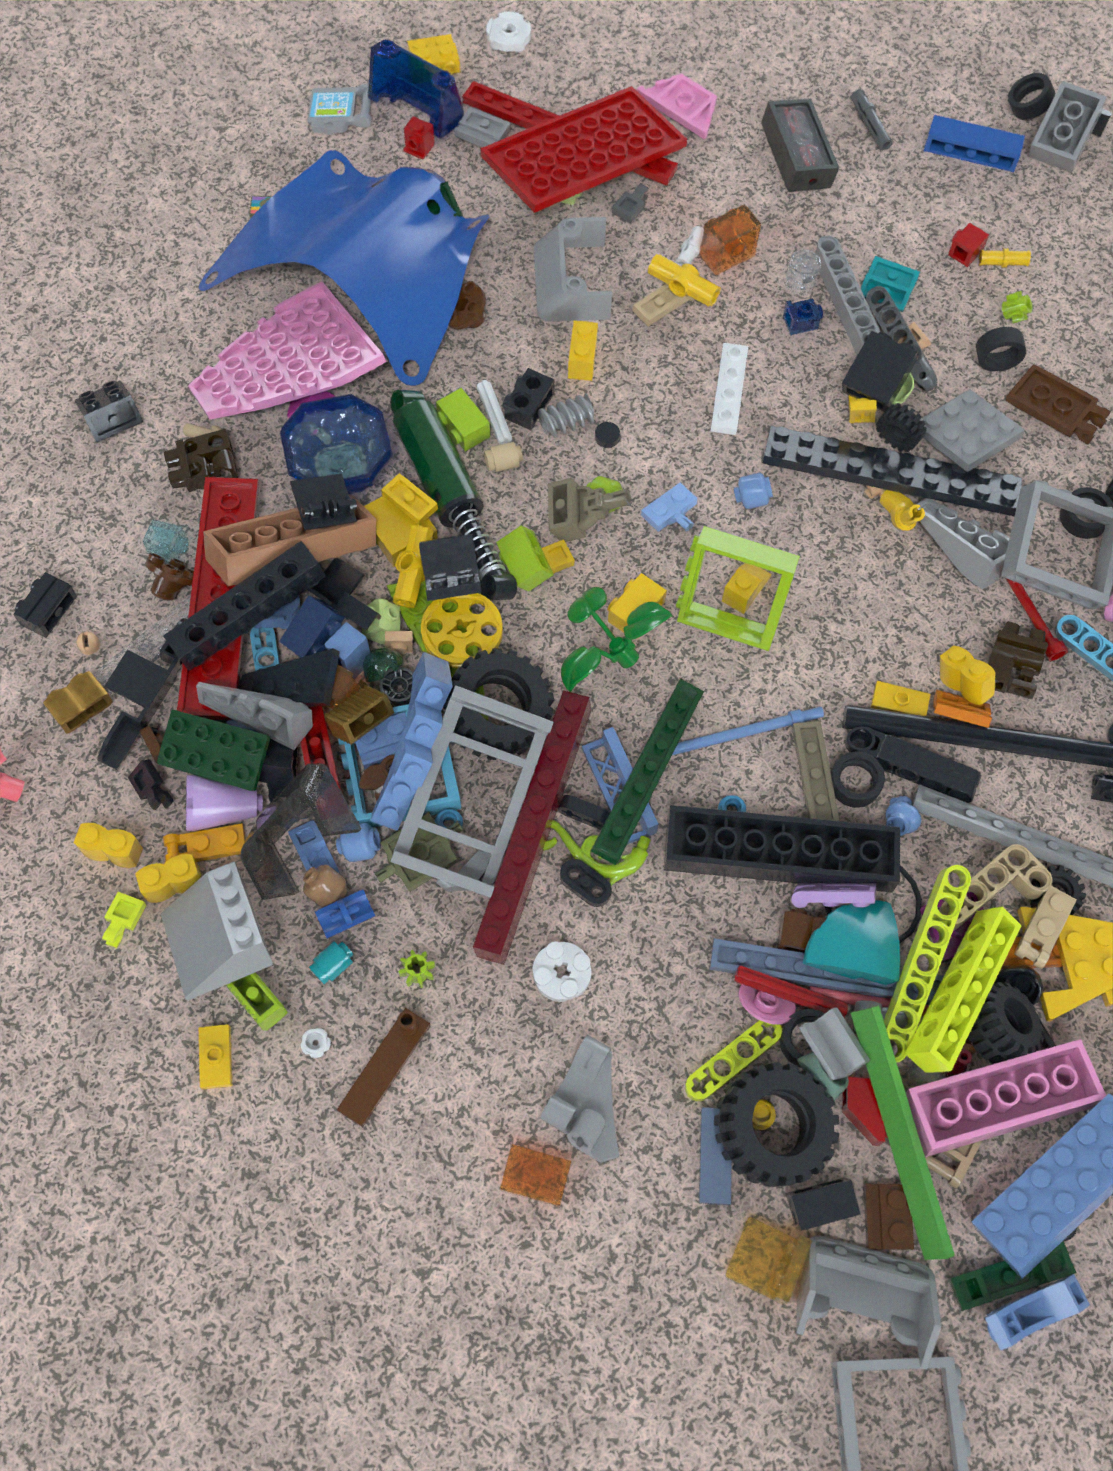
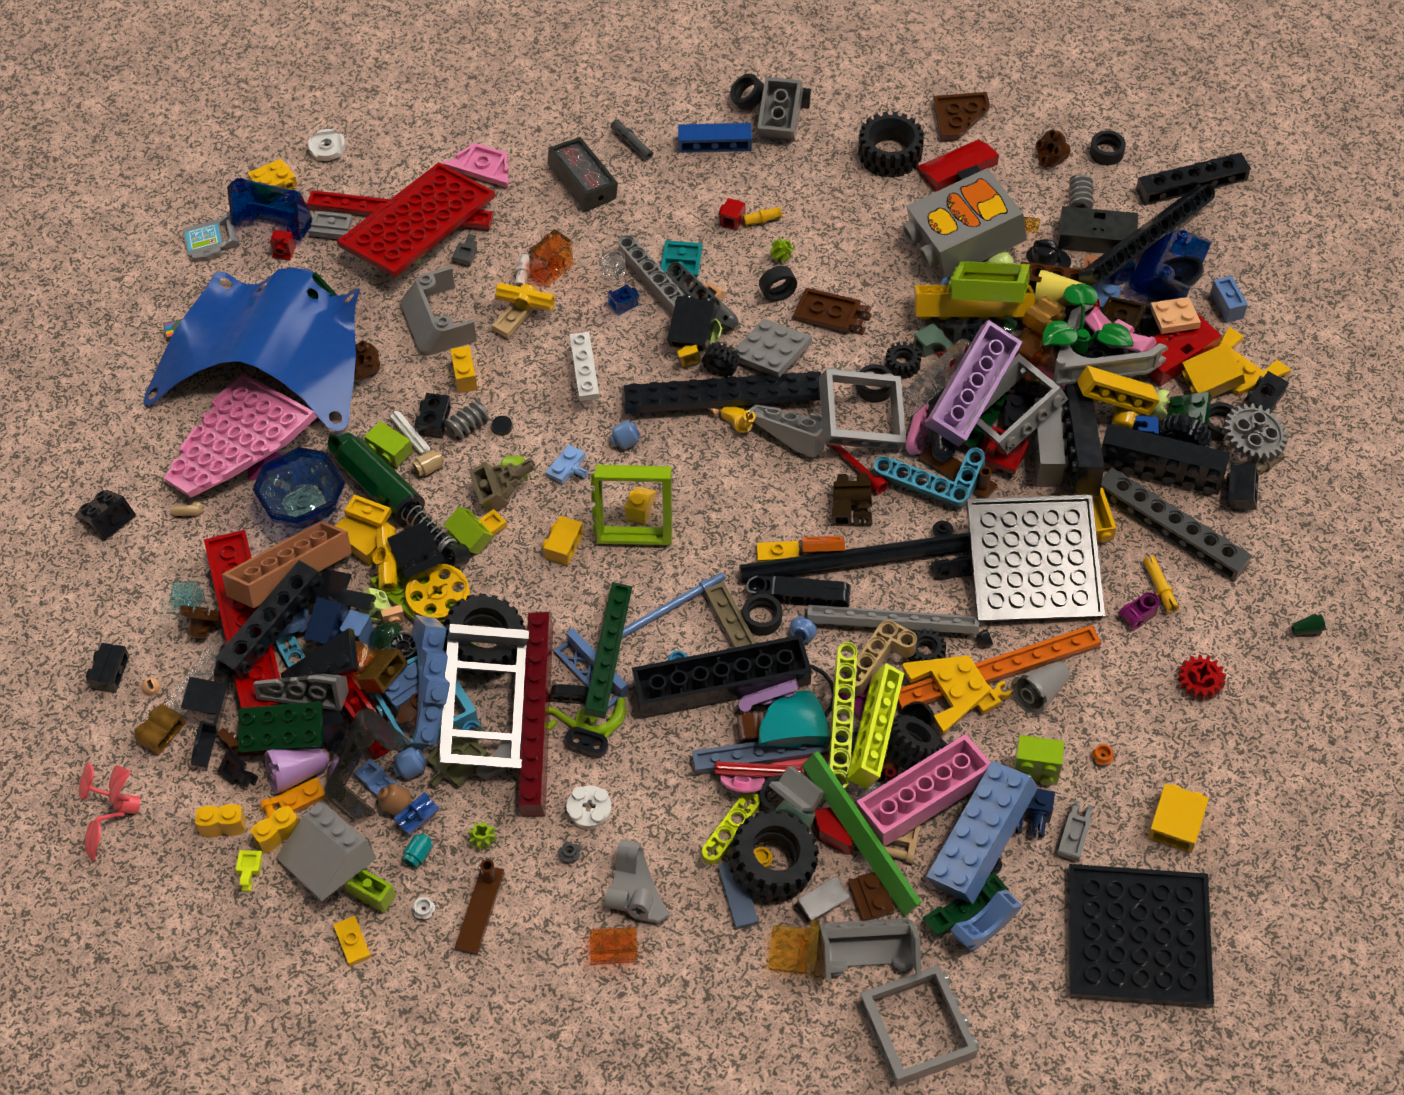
camera: 15 degrees left, 10 degrees down
(200, 458) = (192, 529): dark brown hips -> none
(323, 501) = (305, 528): black hinge -> none
(522, 1033) = (572, 857): none -> dark grey plate
(584, 661) = (561, 574): green plant -> none
(968, 675) = (819, 519): yellow brick -> none
(1045, 926) = (922, 670): tan plate -> none

